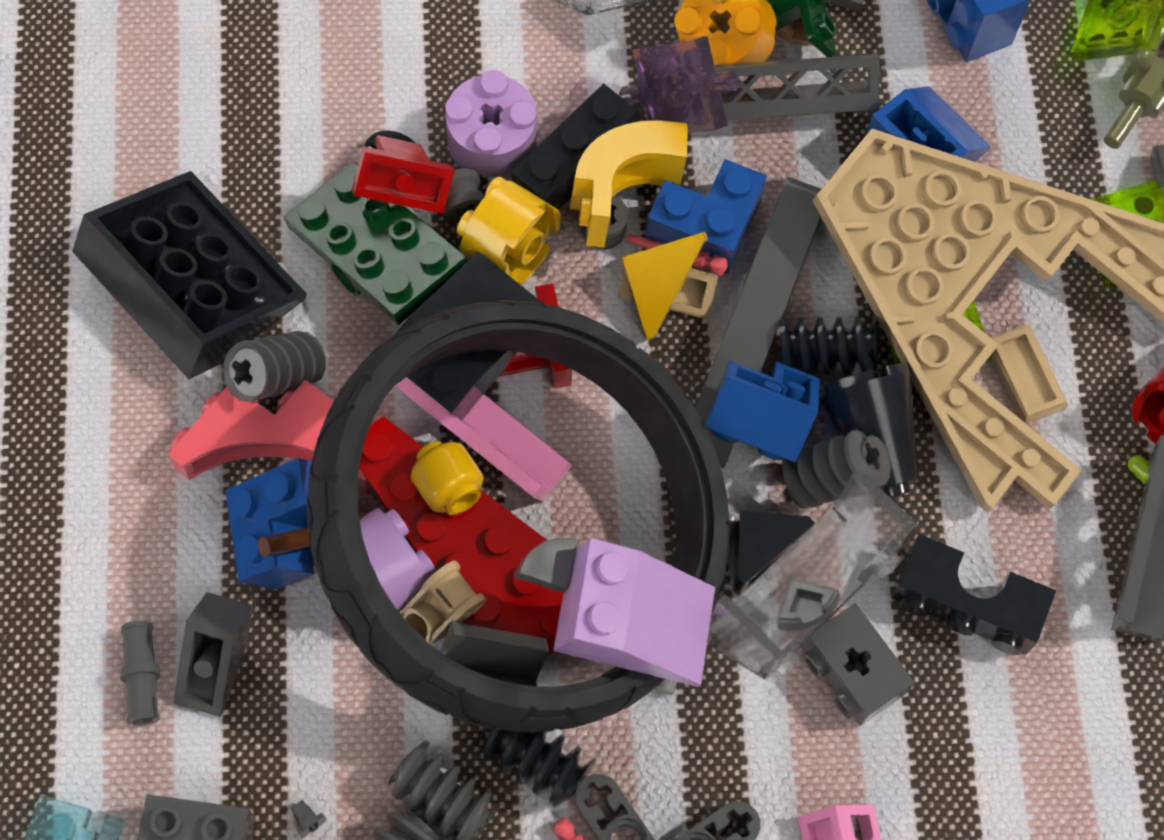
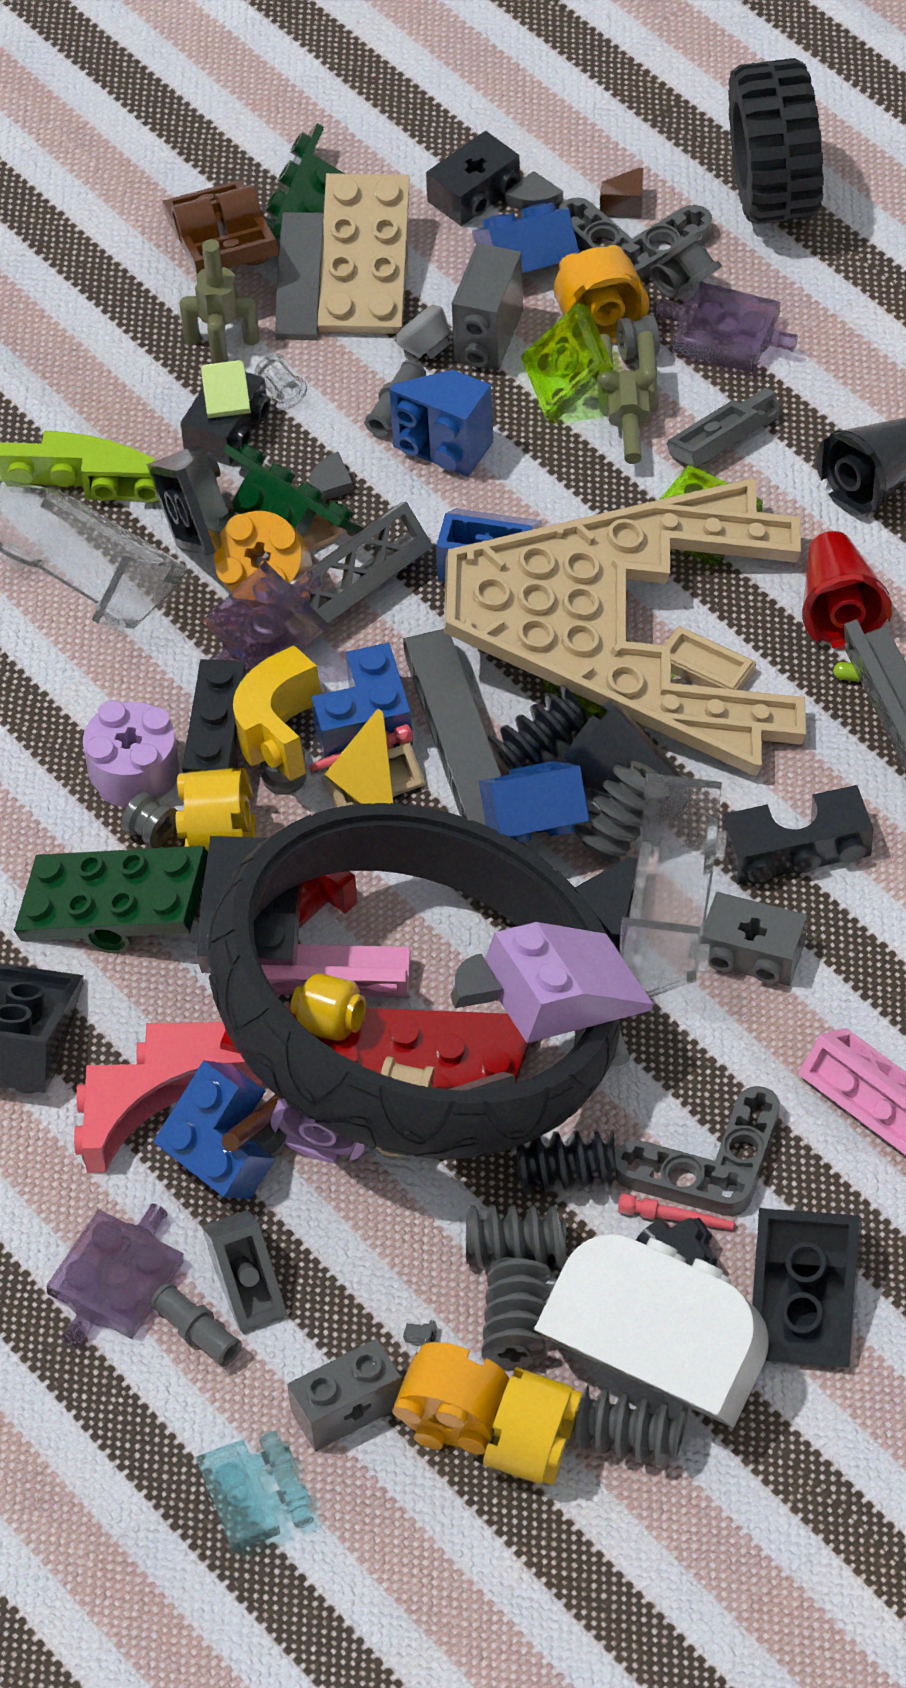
camera: 30 degrees left, 15 degrees down
(118, 578) = (114, 1274): none -> clear purple plate
(273, 365) = (111, 1029): dark grey piece -> none
(401, 173) = (93, 827): red piece -> none
(806, 605) = (683, 907): dark grey tile -> none

